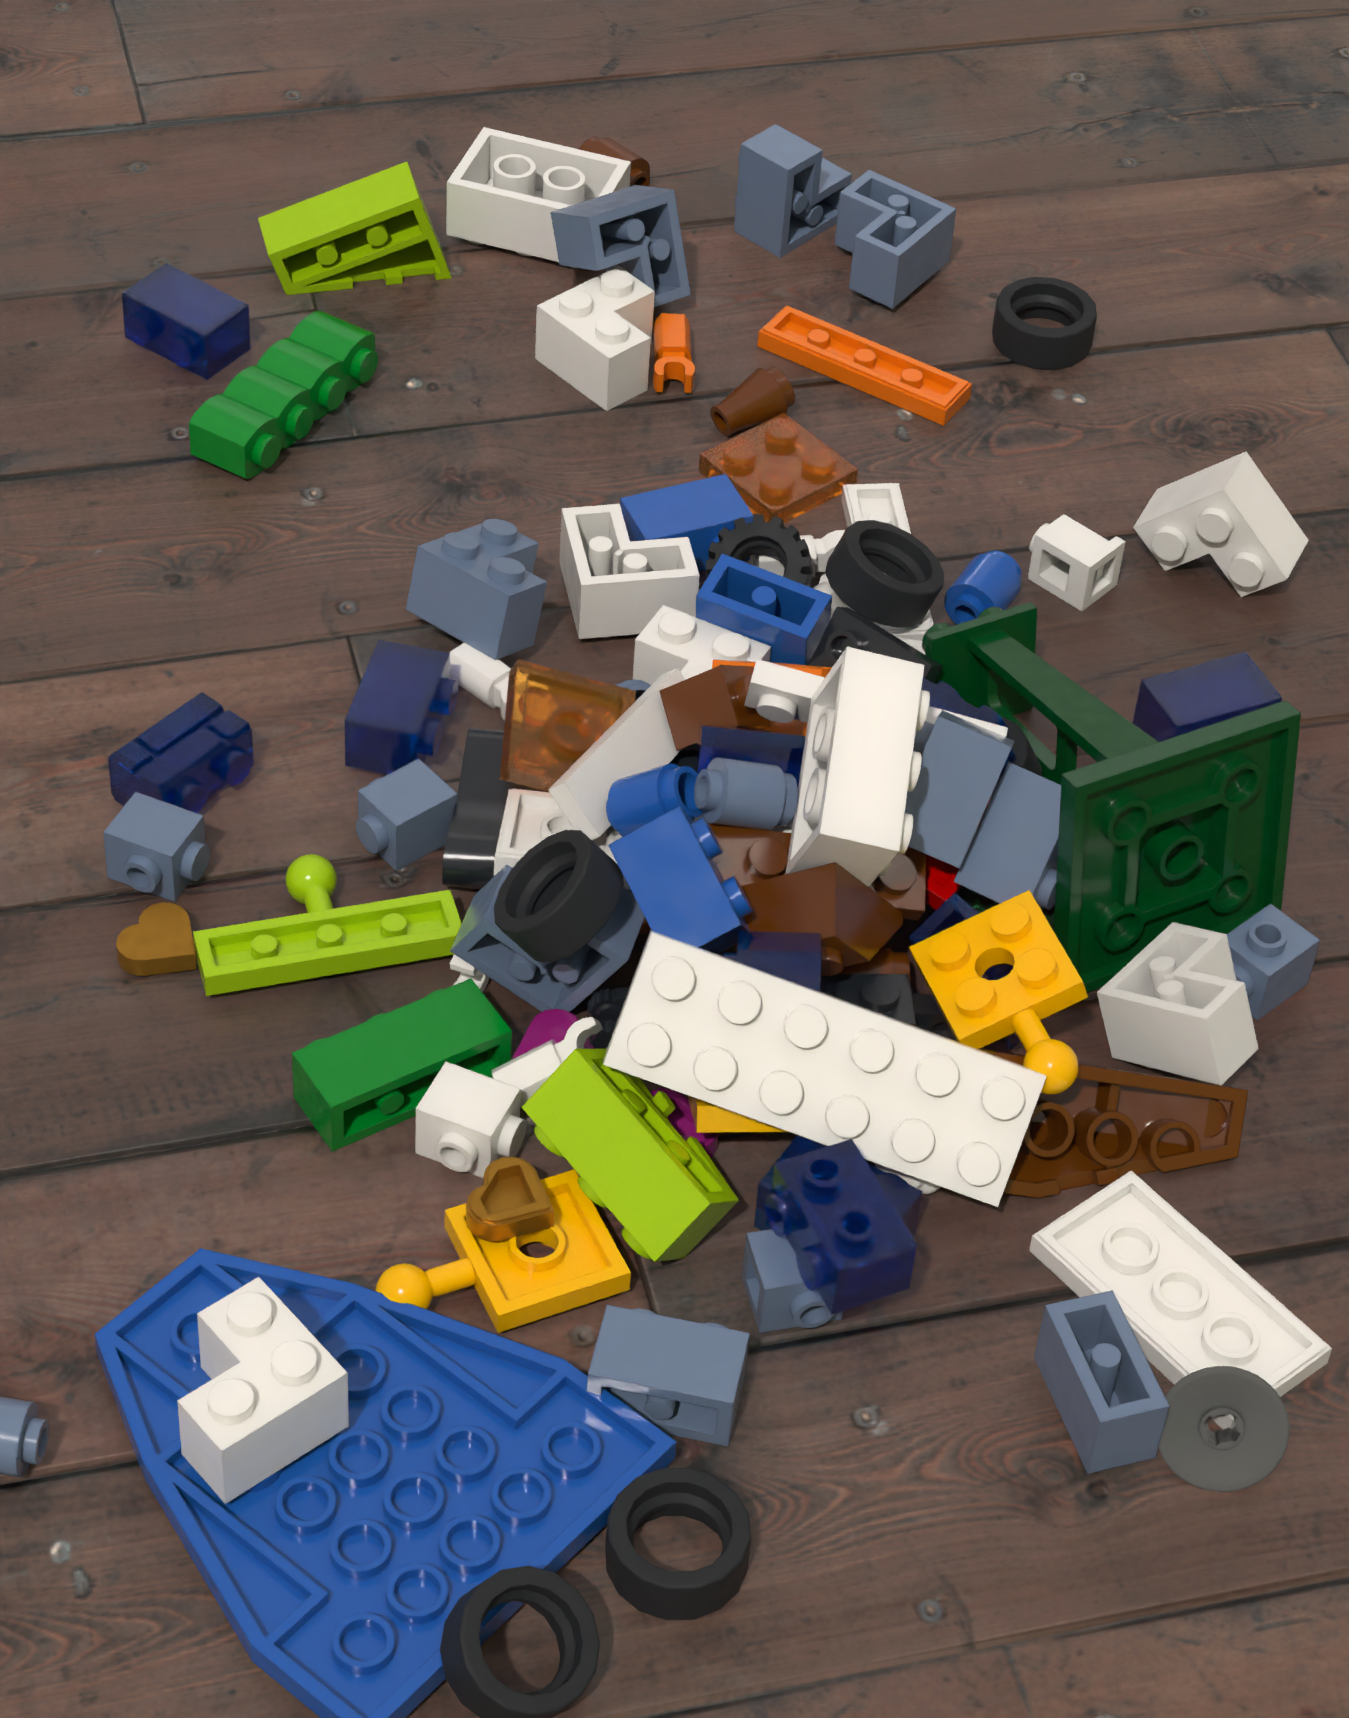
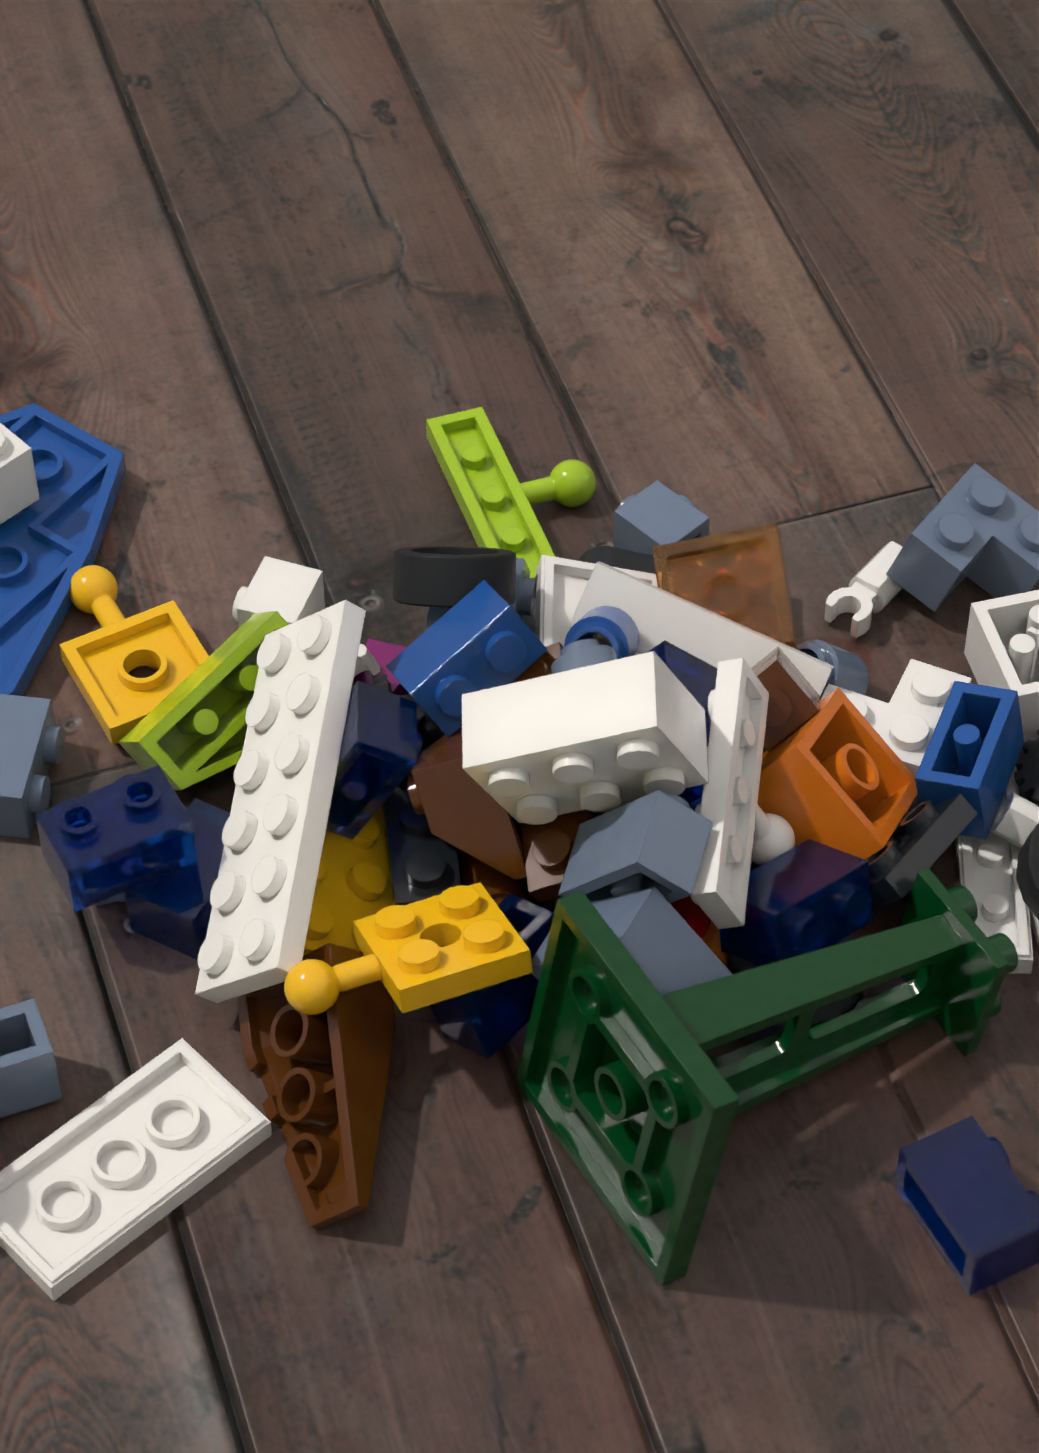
camera: 90 degrees right, 5 degrees up
(156, 847) = (585, 372): sand blue brick -> none
(158, 943) = (499, 396): pearl gold tile -> none
(184, 756) = (700, 376): clear blue brick -> none
(385, 1065) = (327, 531): green brick -> none
(399, 708) = (805, 498): clear blue brick -> none
(508, 1202) = (176, 635): pearl gold tile -> none
(1180, 1007) = (465, 1133): white brick -> none
(1271, 958) = (568, 1244): sand blue brick -> none

